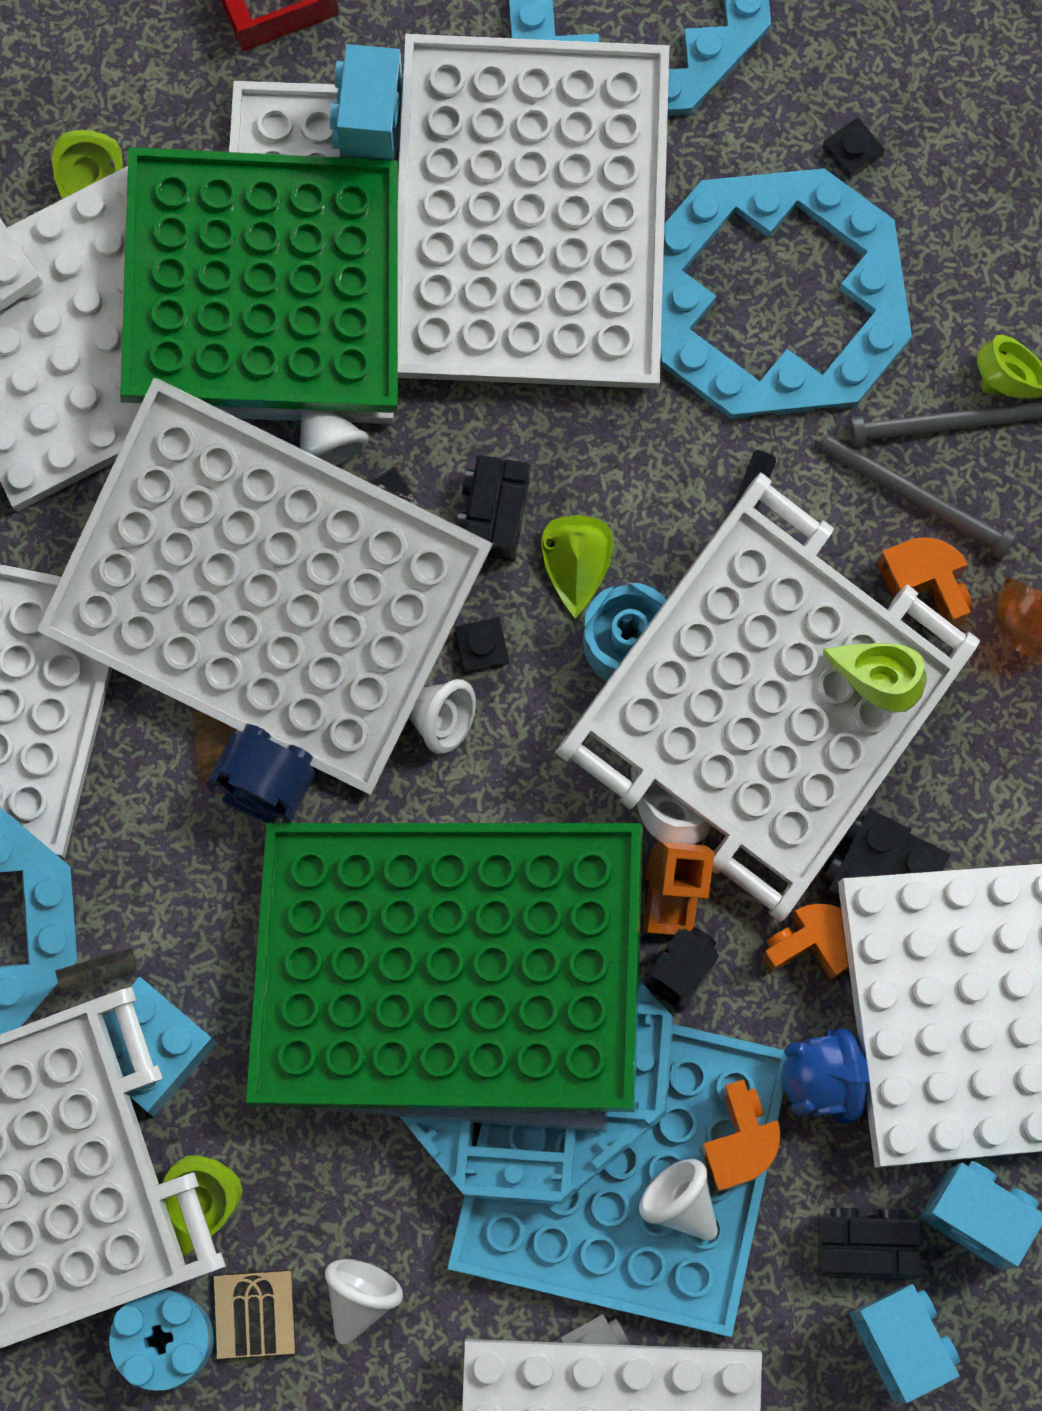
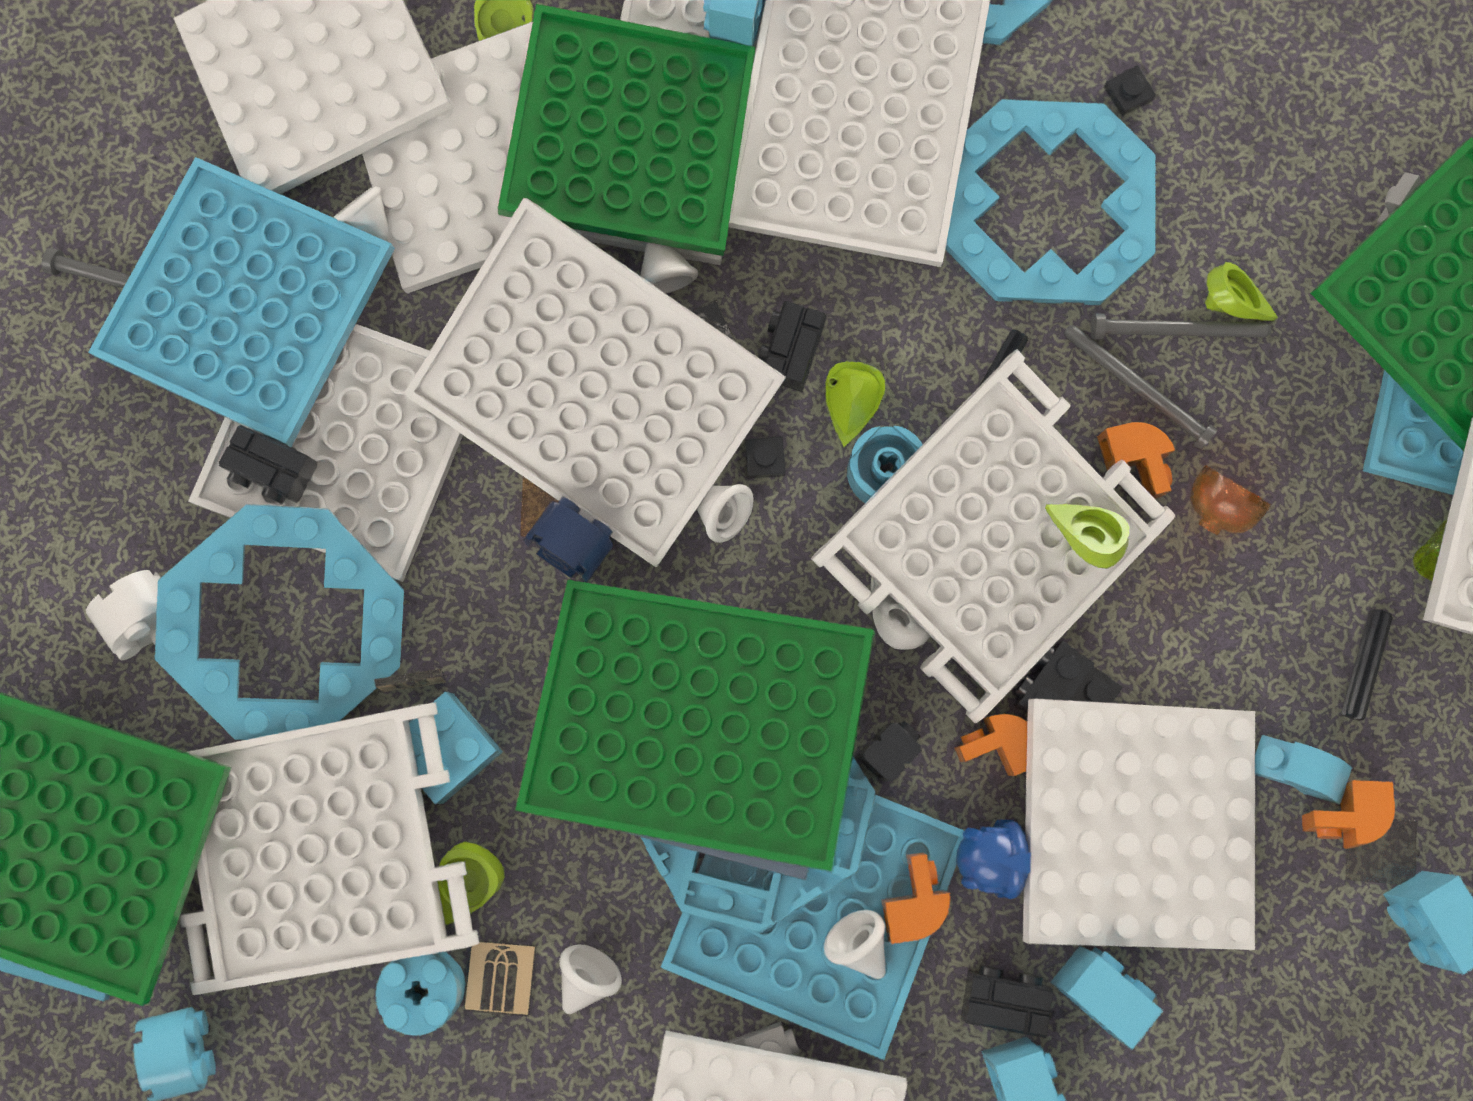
camera: 10 degrees right, 5 degrees up
(676, 880) = (894, 678): orange brick -> none

